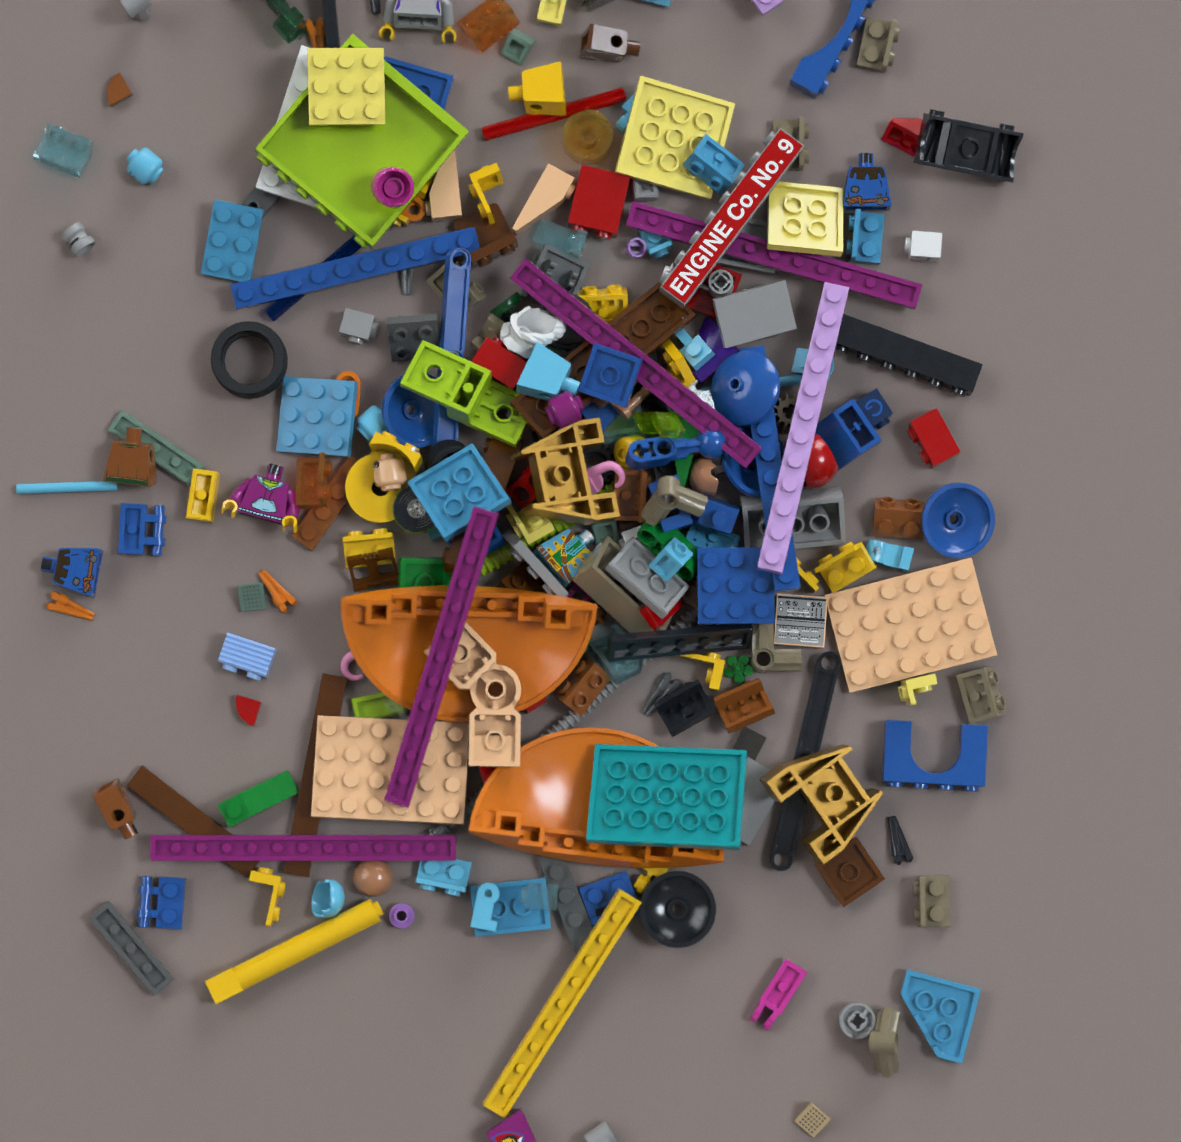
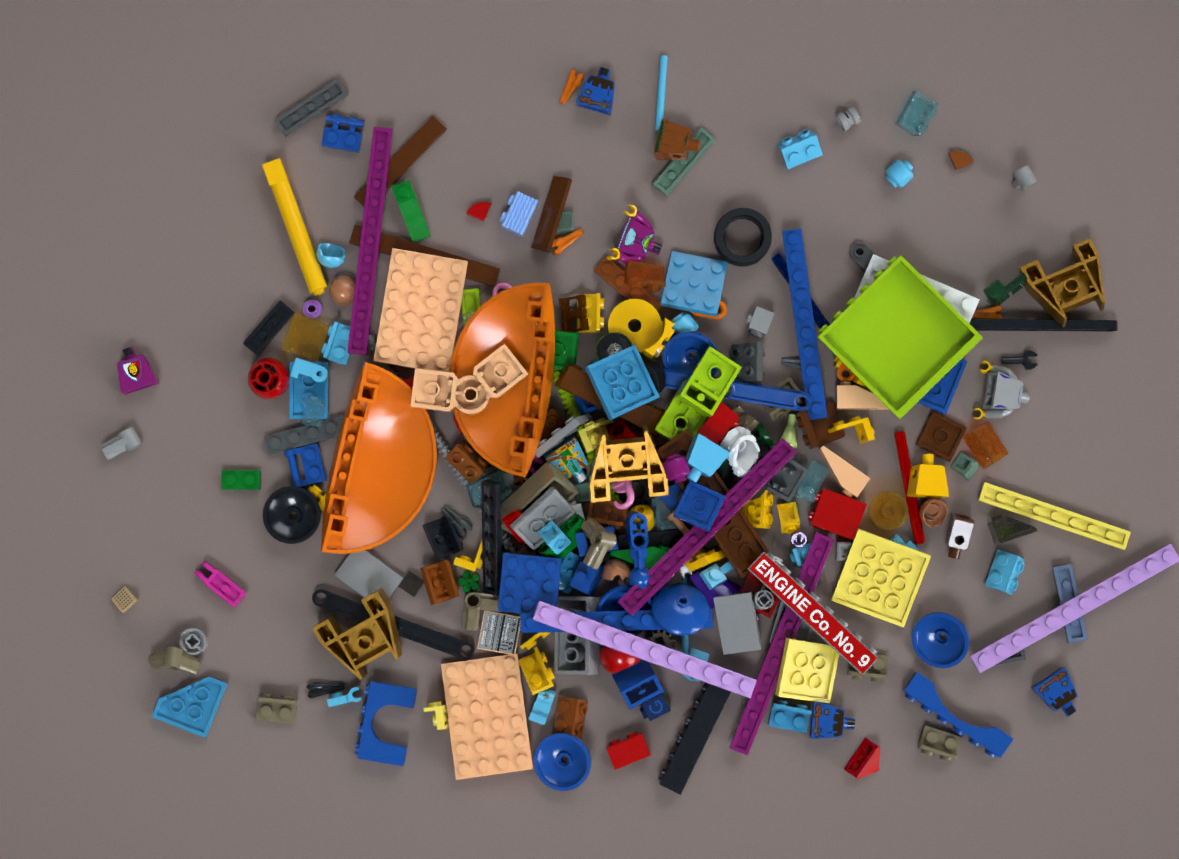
camera: 95 degrees right, 0 degrees up
(113, 797) = (422, 102): dark orange torso -> none
(123, 298) = (799, 148): none -> medium azure bracket
(133, 529) = (623, 138): blue plate -> none
(203, 495) = (643, 193): yellow slope -> none
(232, 241) = (835, 233): dark azure plate -> none
(243, 613) = (551, 213): none -> reddish brown tile
(266, 876) = (353, 210): yellow bracket -> none
(346, 86) = (942, 328): light yellow plate -> none
(389, 472) = (644, 332): light nougat head -> none
(392, 187) = (860, 355): dark pink hair -> none
(433, 970) = (269, 328): none -> black plate
(440, 919) = (305, 337): none -> clear yellow plate
(441, 656) = (499, 355): magenta plate -> none
(483, 80) = (941, 436): none -> reddish brown tile
(499, 273) = (790, 431): none -> yellowish green cone
(500, 978) = (256, 374): none -> red wheel
(561, 1003) = (232, 421): yellow plate -> none
(583, 80) = (933, 512): none -> nougat hair
(609, 263) = (788, 517): none -> yellow bracket
(638, 983) = (240, 480): none -> green plate
(660, 423) = (659, 542): clear neon green slope -> none
(667, 797) = (375, 515): teal plate -> none
(713, 164) = (856, 605): dark azure bracket -> none
(759, 54) = (934, 648): none -> blue dish
(850, 873) = (304, 649): reddish brown plate -> none
(910, 820) = (338, 698): none -> medium azure plate
(923, 246) = (778, 760): white brick -> none
(967, 146) = (850, 803): black piece -> none
(981, 694) = (428, 764): dark tan bracket -> none

